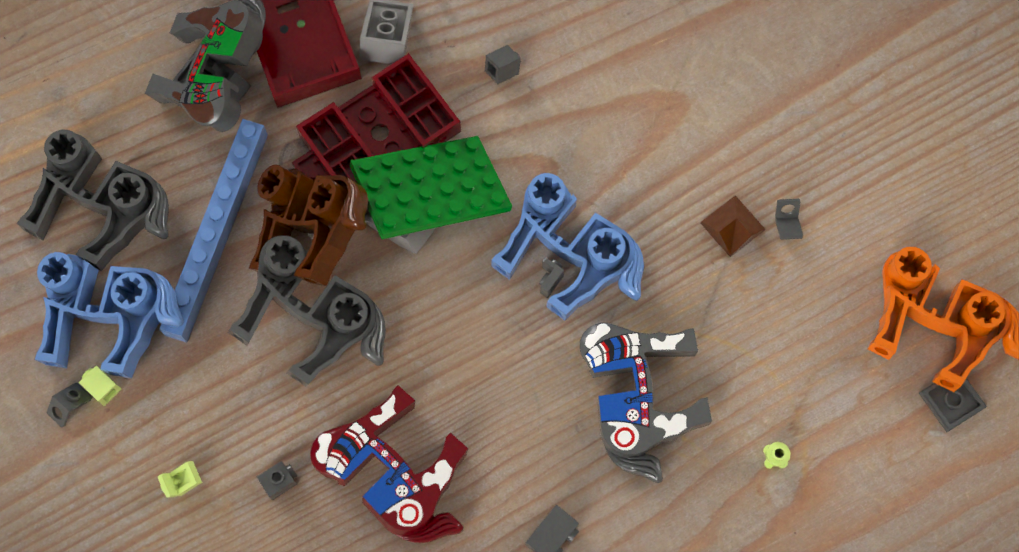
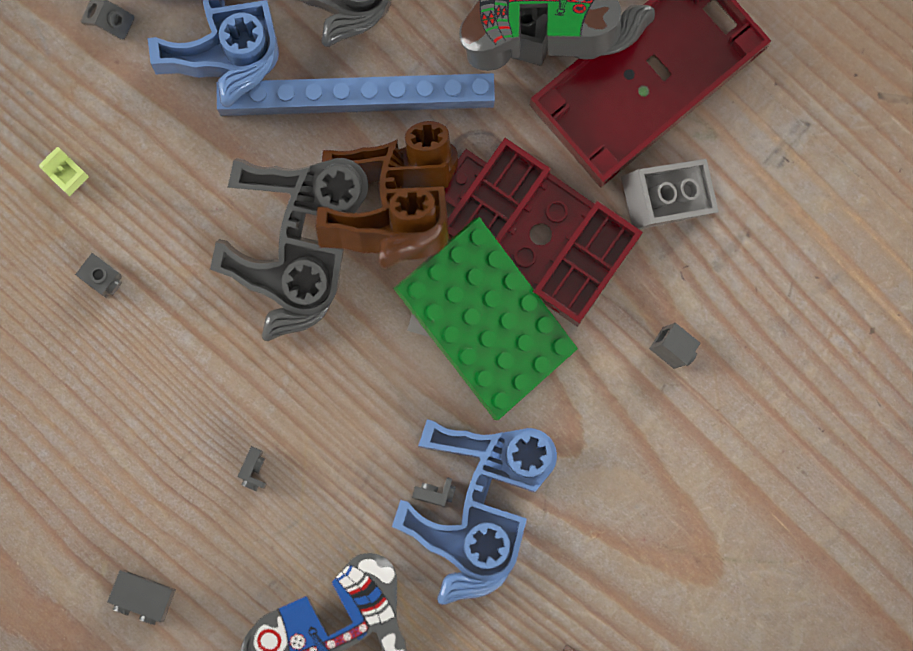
camera: 70 degrees right, 10 degrees up
(99, 385) = (134, 42): yellowish green brick -> none
(399, 498) = (120, 416): animal -> none
(477, 410) = (252, 464): none -> dark grey bracket

